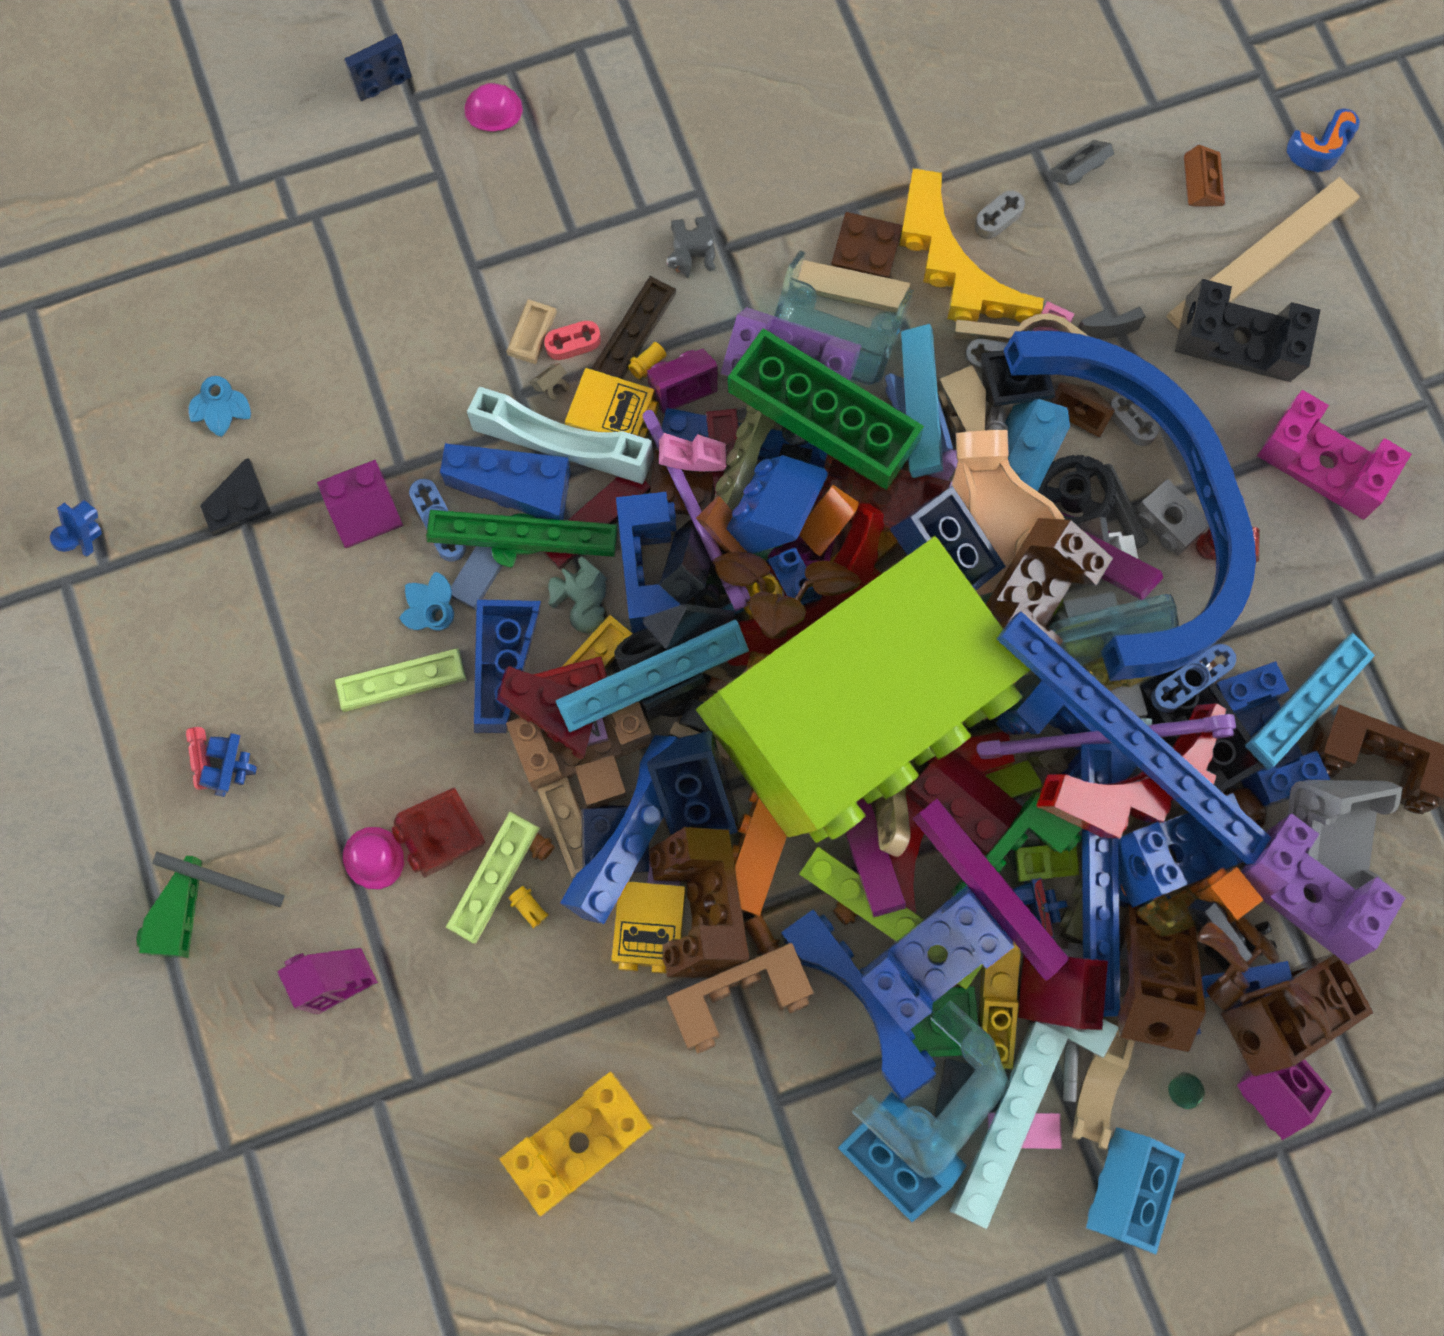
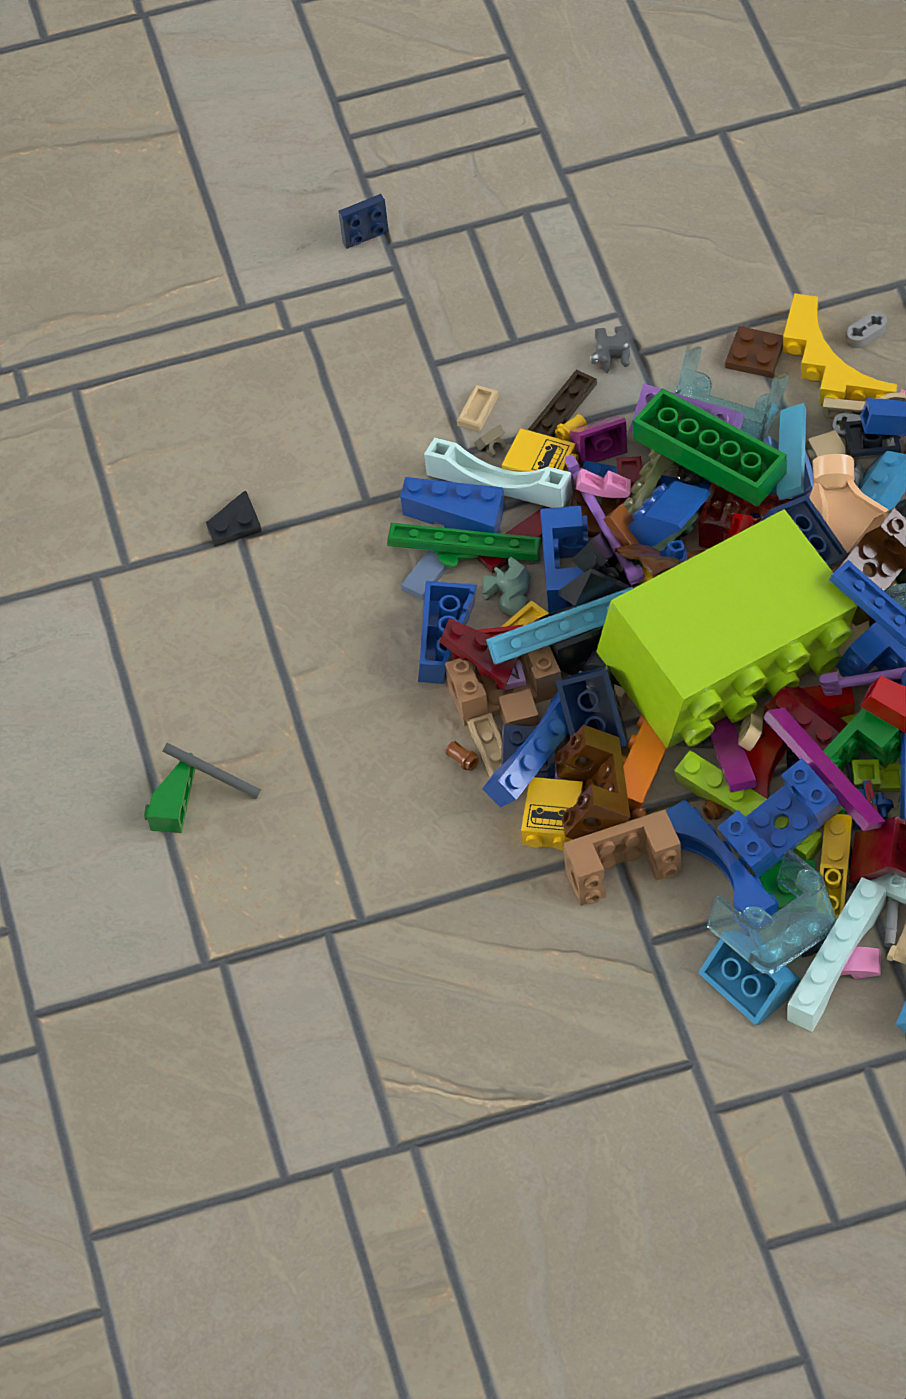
camera: 10 degrees right, 20 degrees down
(76, 528) = (109, 532): blue hips -> none
(197, 750) = (197, 695): coral axle -> none
(218, 409) = (225, 457): dark azure plate -> none
(226, 750) = (223, 698): blue hips -> none
(325, 978) = (293, 835): magenta wedge -> none
(360, 503) = (334, 521): magenta slope -> none
(373, 858) = (333, 766): dark pink hat -> none
(400, 680) = (360, 645): yellowish green tile -> none
(420, 505) = (381, 525): medium blue beam -> none
(426, 602) = (383, 592): dark azure plate -> none
(437, 832) = (385, 746): clear red plate -> none
(492, 877) = (428, 777): yellowish green tile -> none
(493, 107) = (454, 252): dark pink hat -> none
(528, 906) = (453, 797): yellow pin -> none
(547, 1165) = (514, 944): yellow plate -> none
(572, 340) = (511, 413): coral beam -> none
(828, 519) = (709, 525): orange slope -> none
(854, 286) = (738, 378): tan tile -> none

